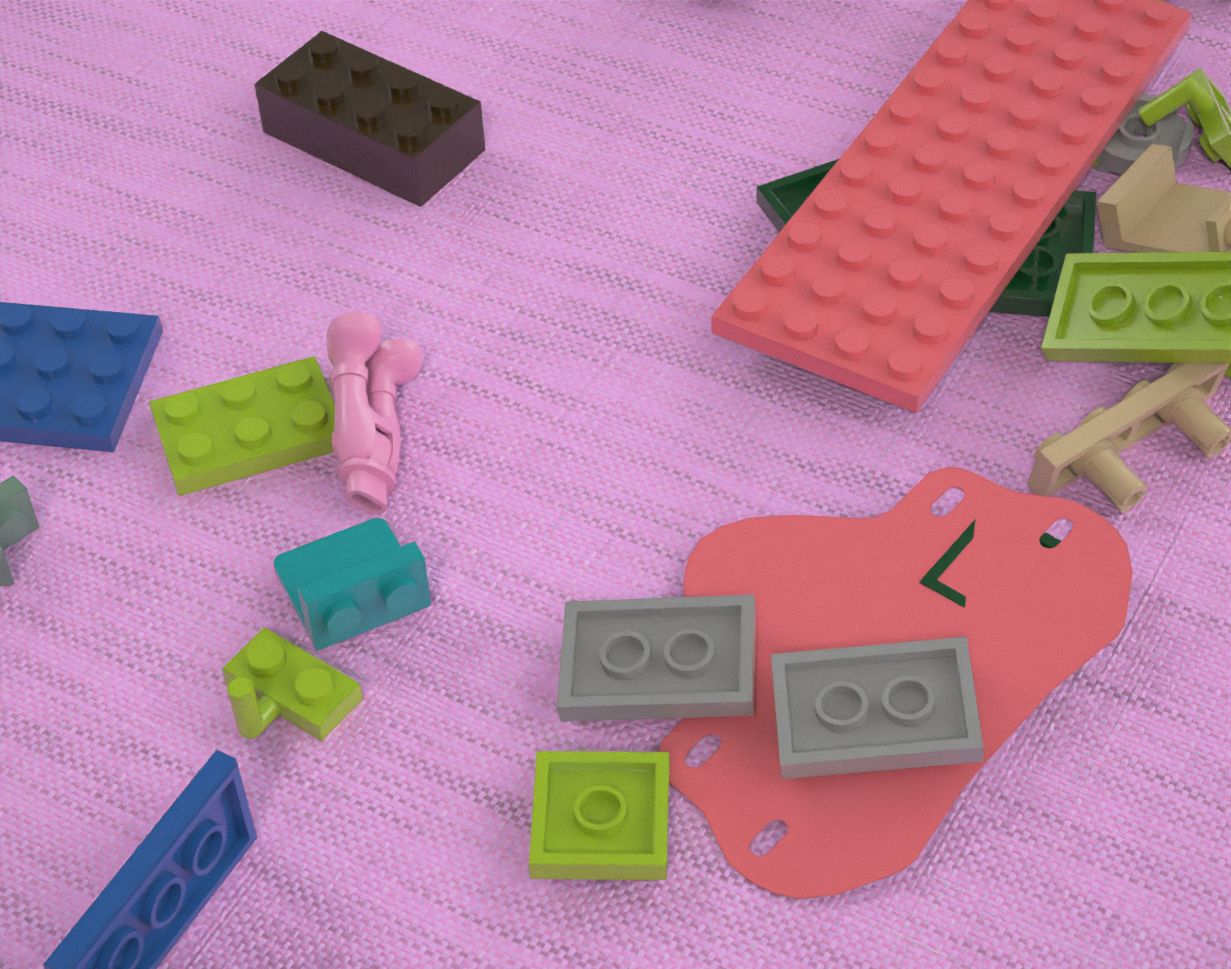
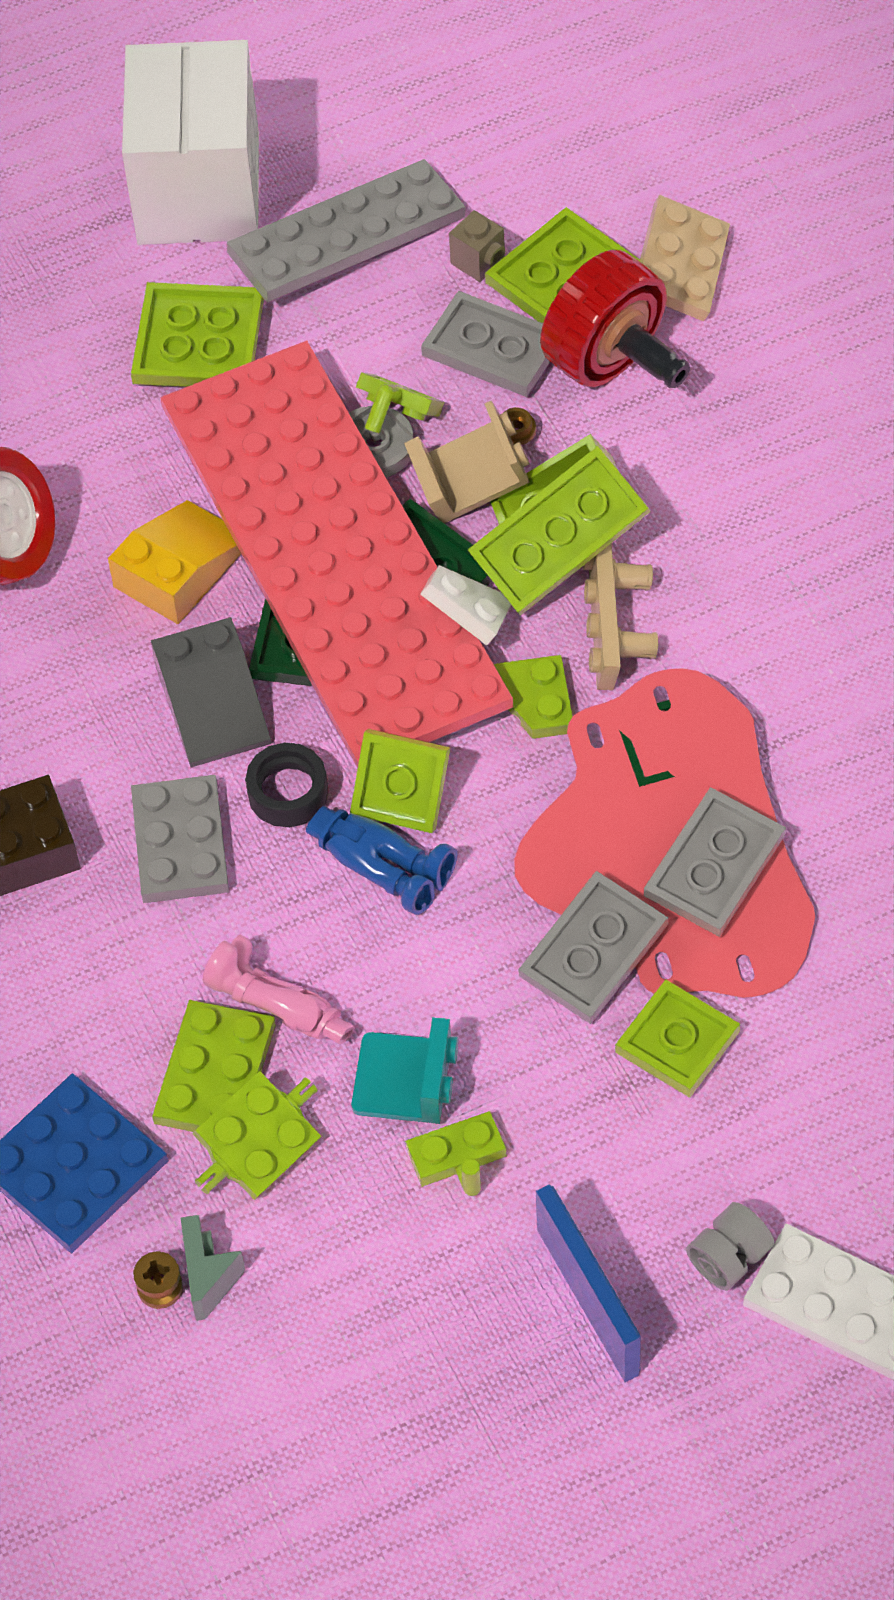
camera: 55 degrees left, 10 degrees up
(178, 493) = (256, 1135): none -> lime plate
(513, 253) = (179, 839): none -> light grey plate
(618, 385) = (363, 842): none -> blue piece
(643, 262) = (283, 757): none -> black tyre
(705, 174) = (210, 692): none -> dark grey slope
(722, 365) = (400, 780): none -> lime plate
(833, 69) = (173, 560): none -> yellow slope
(965, 428) = (538, 694): none -> lime wing
(998, 290) = (467, 602): none -> white wing

